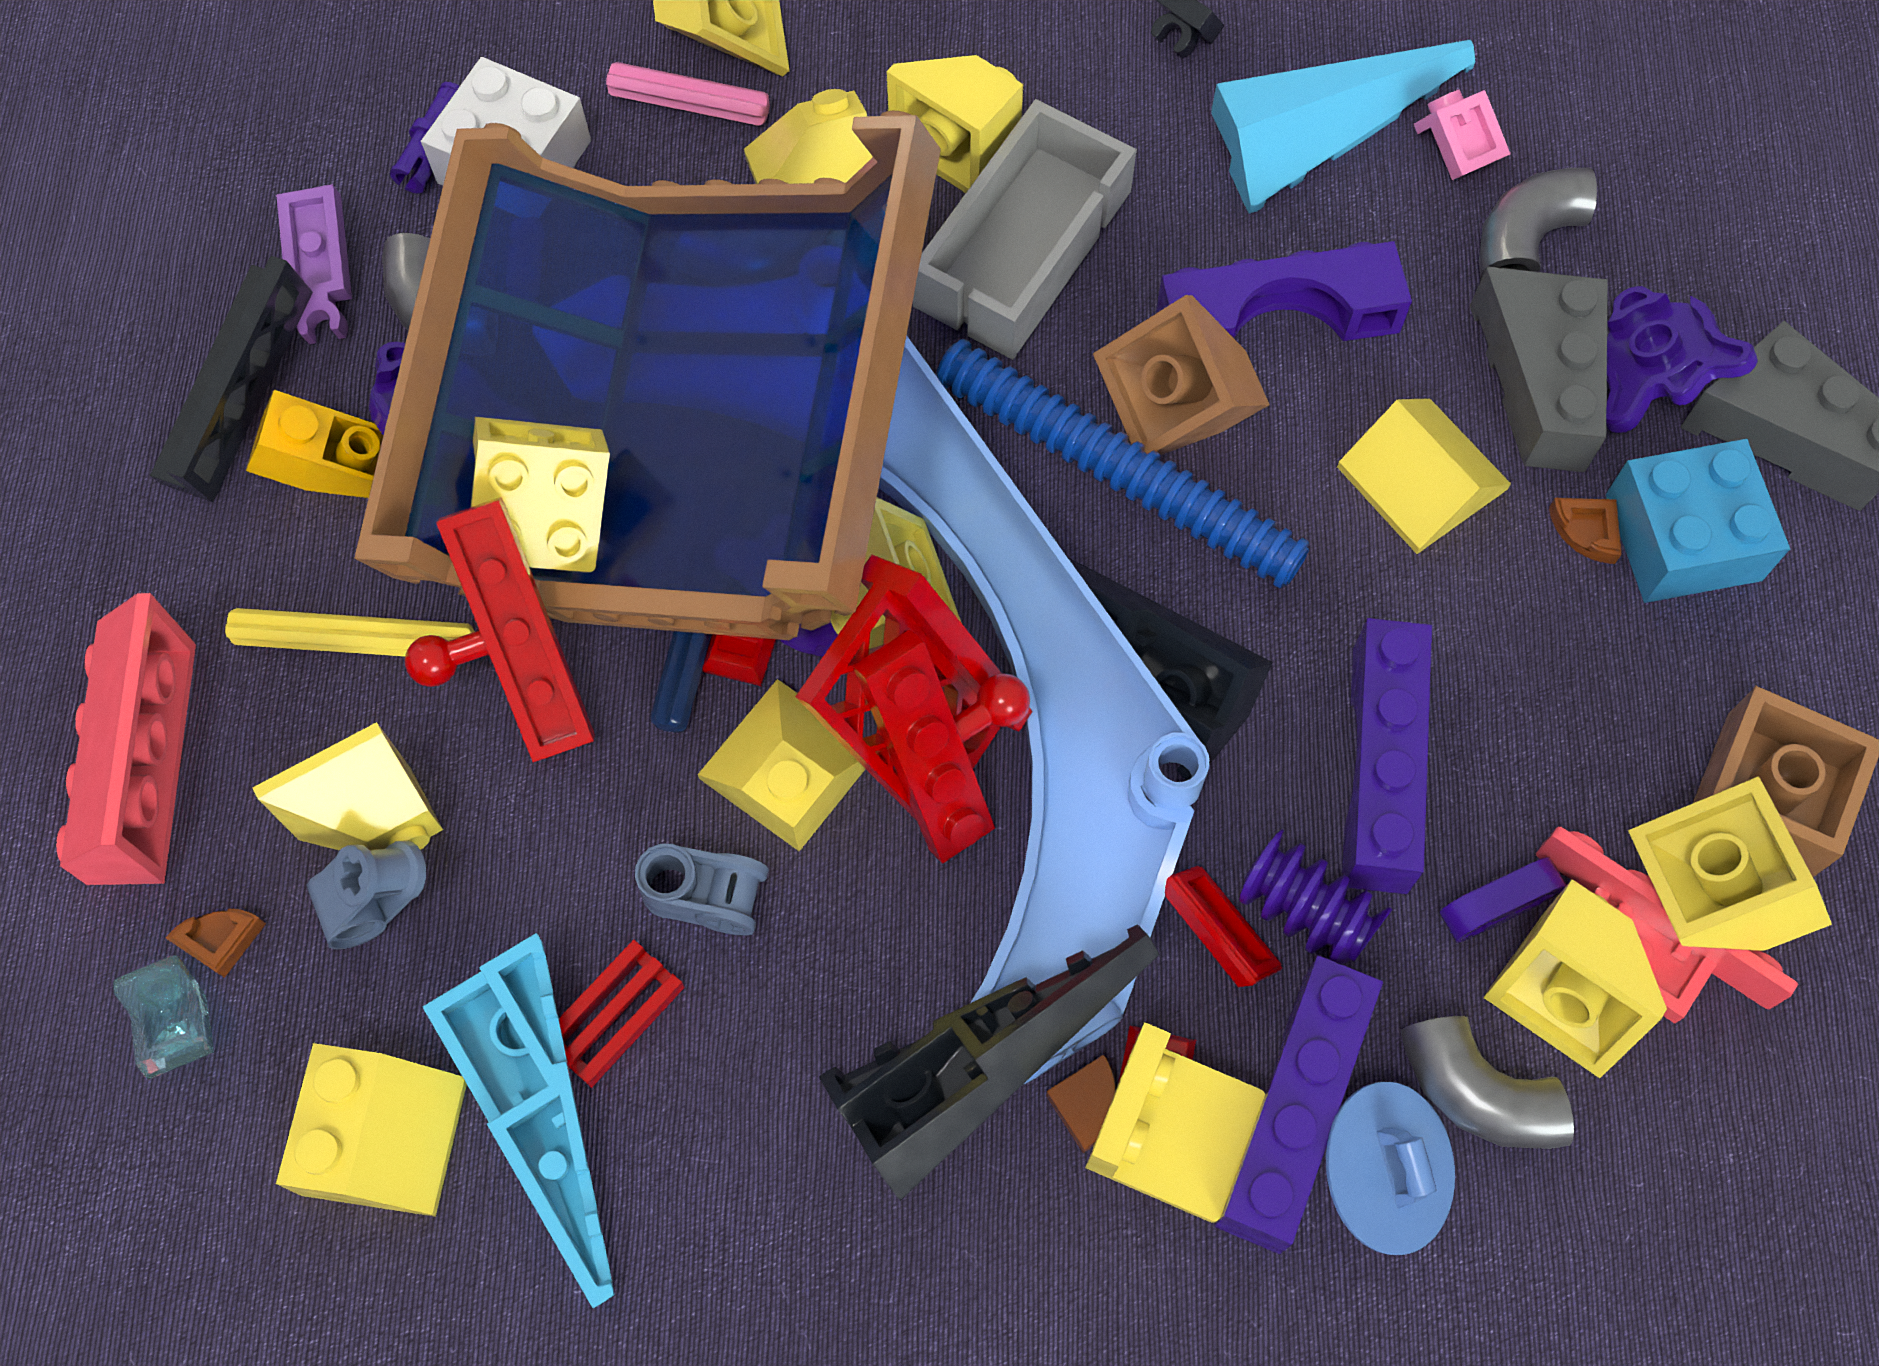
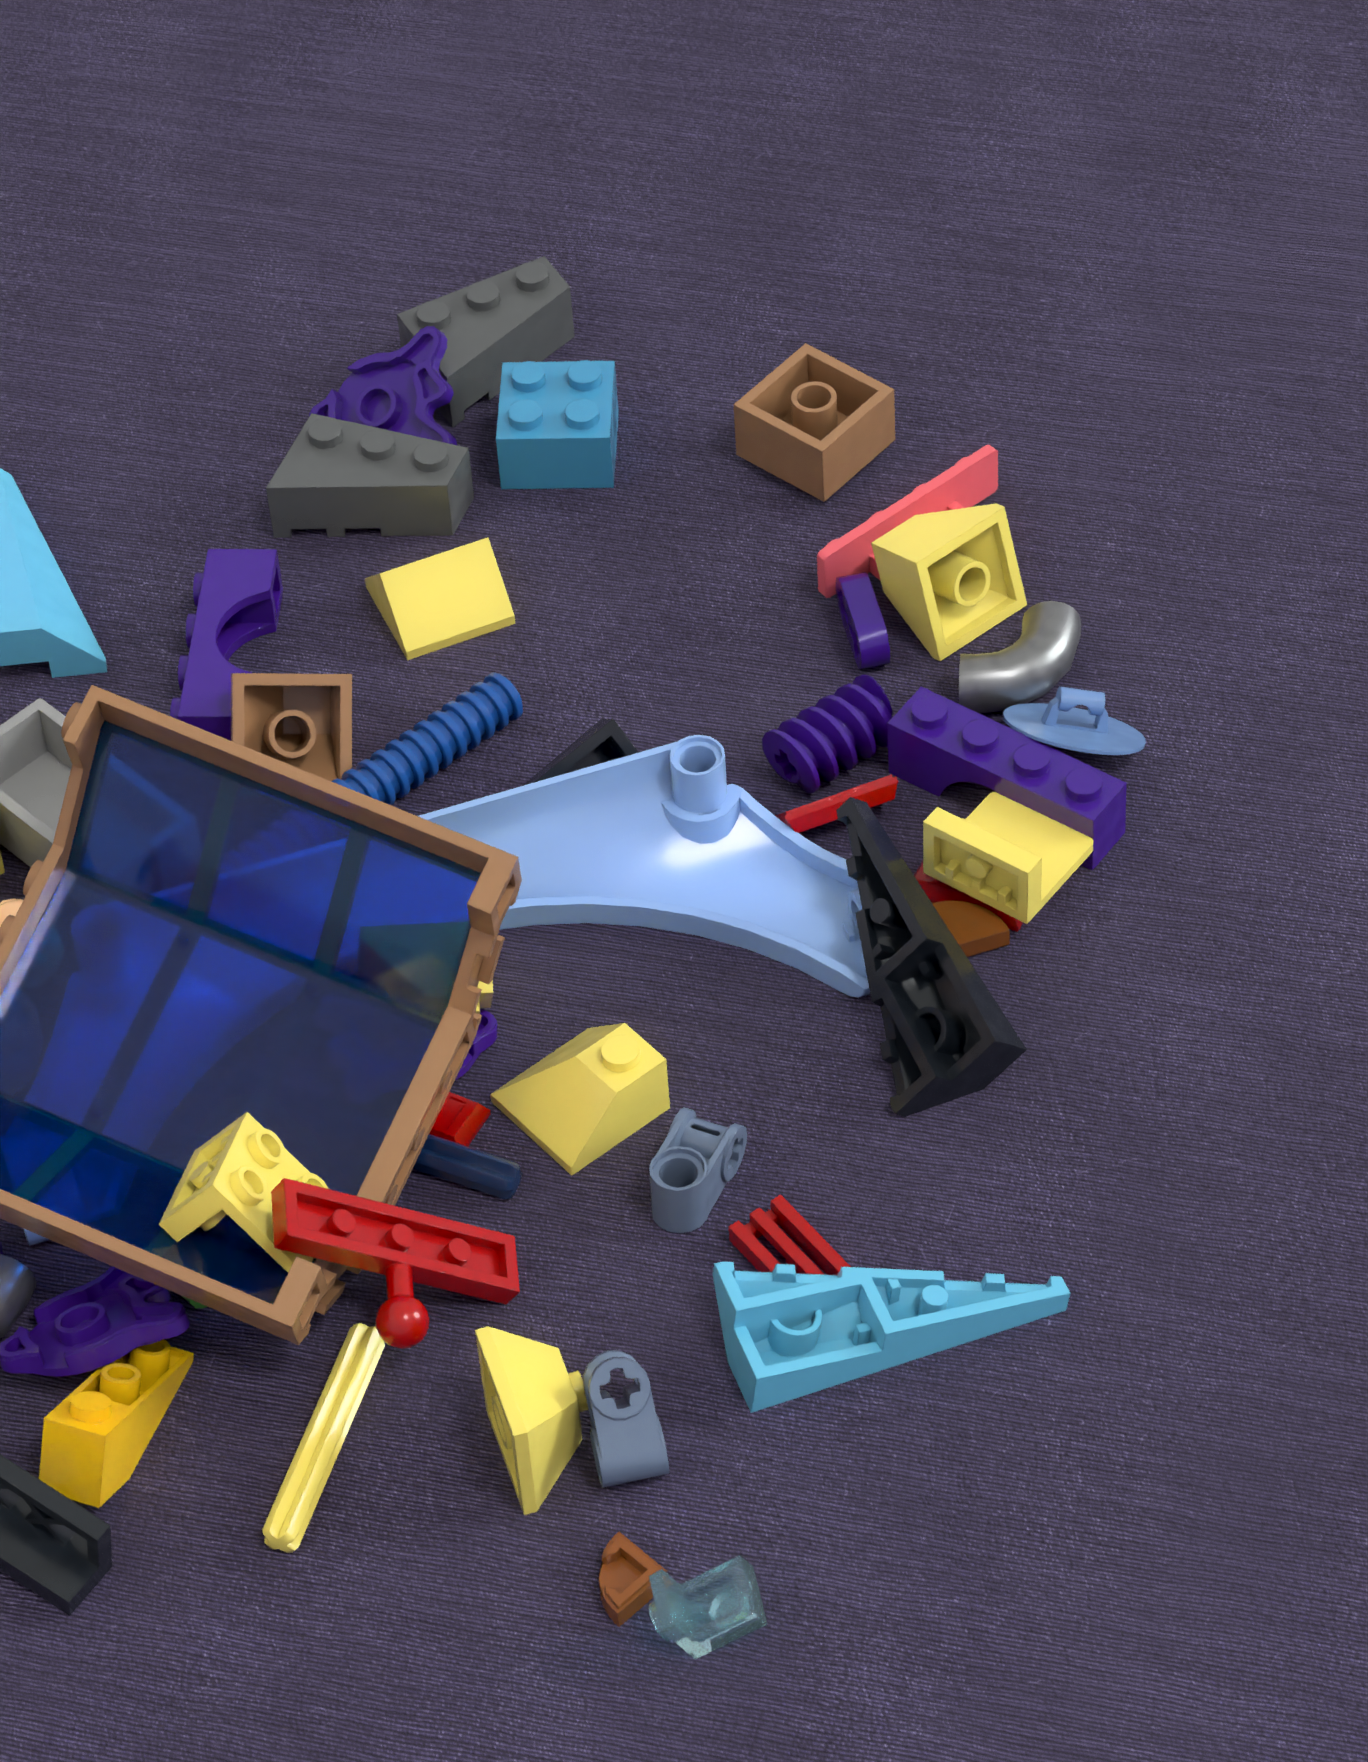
camera: 75 degrees left, 20 degrees down
(128, 747) = (400, 1608): coral slope -> none
(372, 1131) = (861, 1453): light yellow slope -> none
(929, 741) = (595, 887): red plate -> none
(958, 660) = (569, 915): red fence -> none
(1390, 778) = (645, 642): dark purple arch -> none
(1464, 132) = (95, 489): bright pink bracket -> none
(1530, 211) = (211, 471): flat silver cylinder -> none
(1588, 526) = (532, 502): dark orange tile -> none
(1731, 872) = (887, 450): light yellow slope -> none

